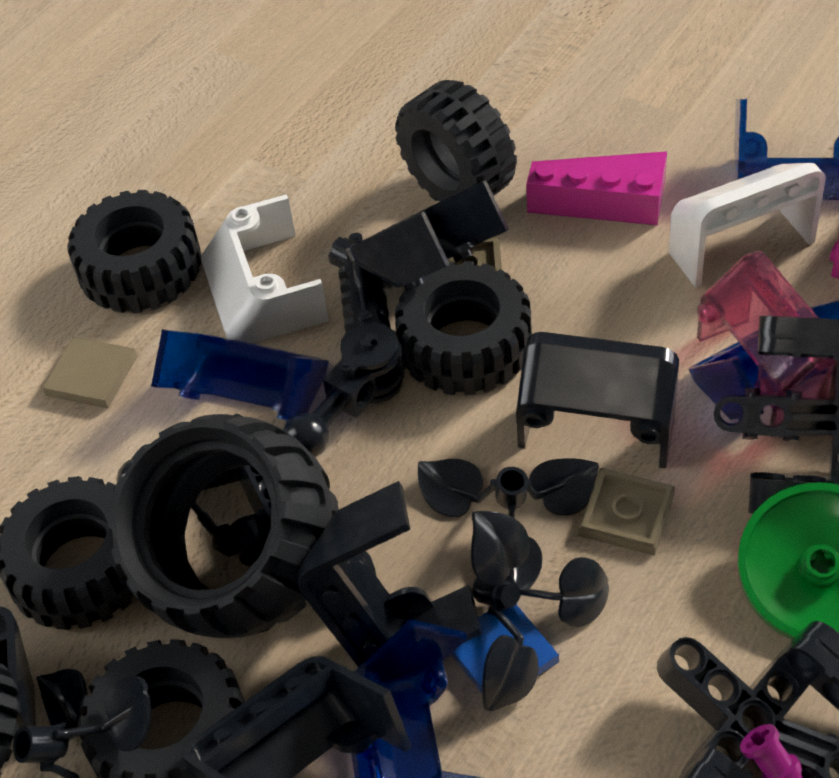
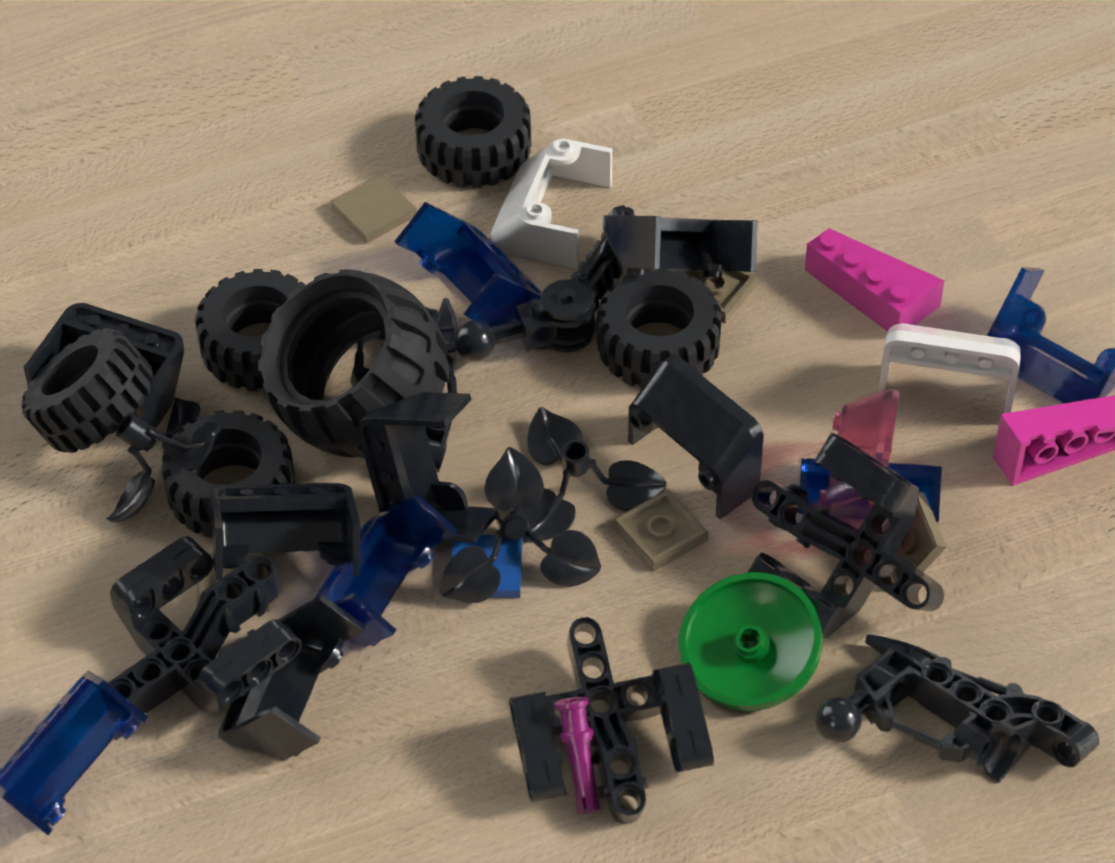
camera: 30 degrees right, 0 degrees up
(455, 140) = (771, 179): black tyre -> none

